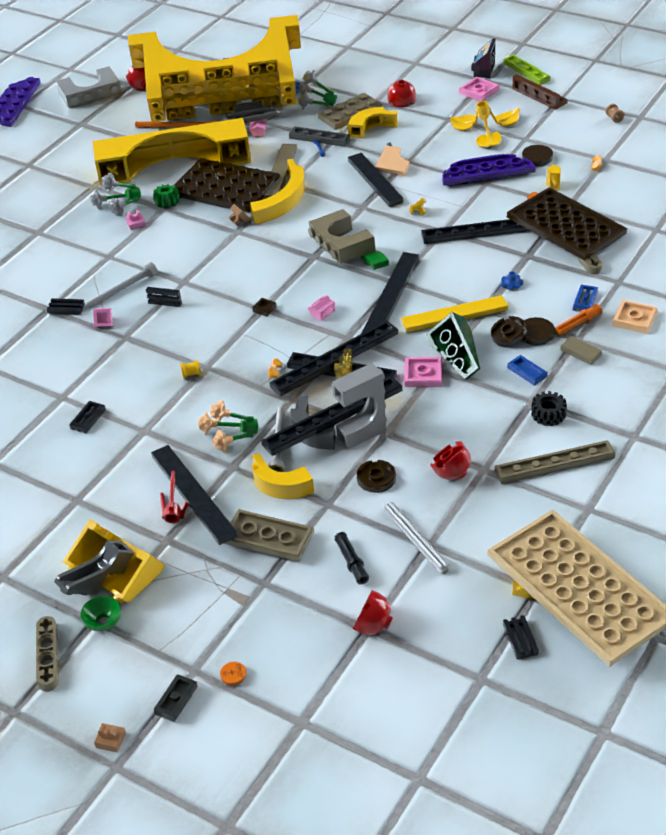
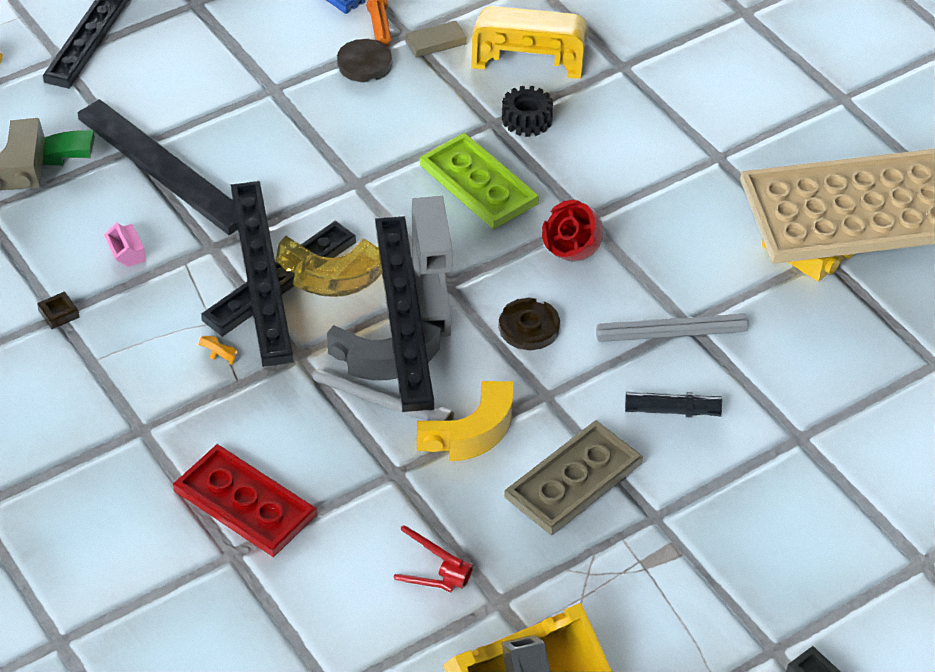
camera: 70 degrees left, 5 degrees up
(90, 417) = (158, 637): black tile -> none
(180, 419) = (245, 500): none -> red tile
(190, 369) = (142, 445): yellow bush -> none
(195, 495) = (442, 529): black tile -> none
(233, 673) = (807, 605): orange piece -> none
(247, 425) = (323, 425): light nougat plant -> none
(374, 615) = (795, 416): red cylinder -> none
(423, 372) = (355, 197): bright pink tile -> none
(456, 344) = (335, 142): dark green wedge -> none
(467, 310) = (260, 120): yellow tile -> none
(472, 411) = (479, 180): none -> lime plate
(508, 331) = (348, 83): dark brown tile -> none
(512, 280) = (241, 38): blue plant -> none
(515, 623) = (892, 298): black tile -> none
(527, 370) = (433, 101): blue tile -> none
(554, 462) = (621, 151): dark tan tile -> none
(613, 383) = (530, 32): none -> yellow windscreen

